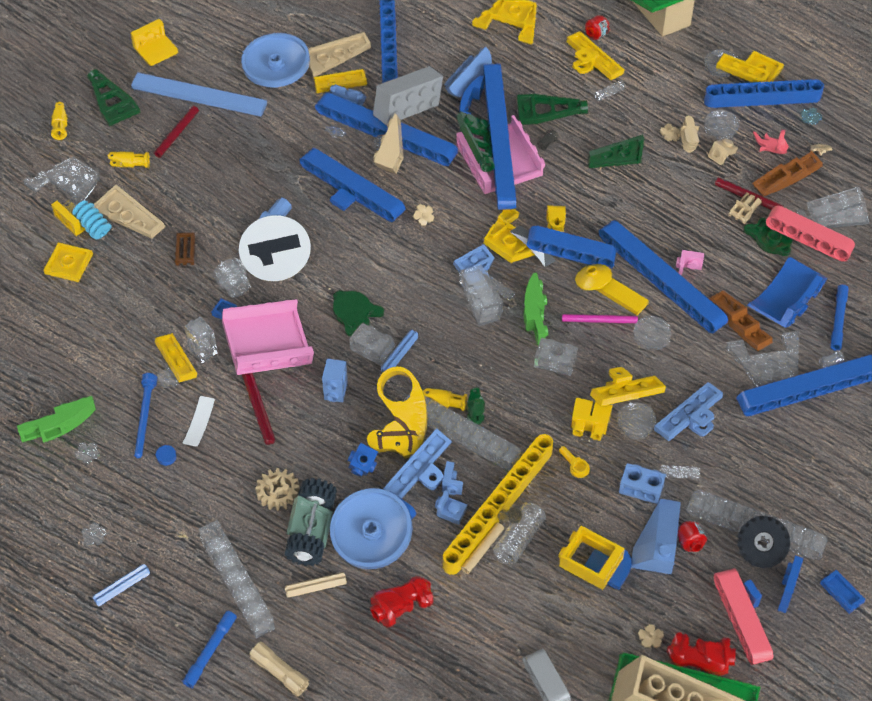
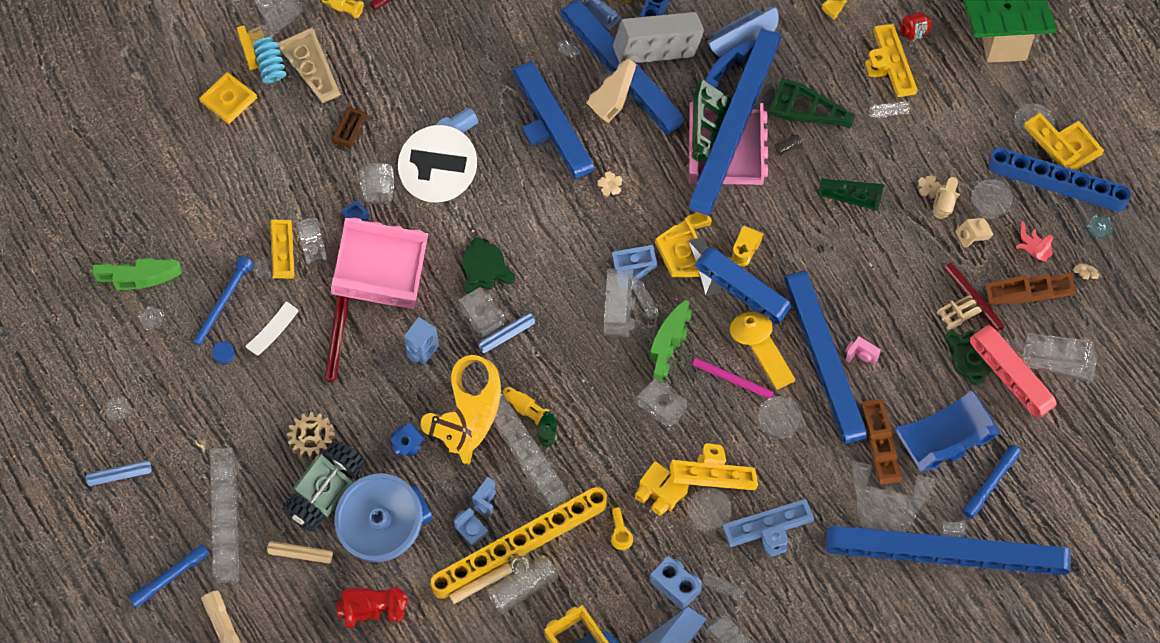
camera: 25 degrees right, 10 degrees up
(421, 466) = (459, 472): medium blue plate -> none

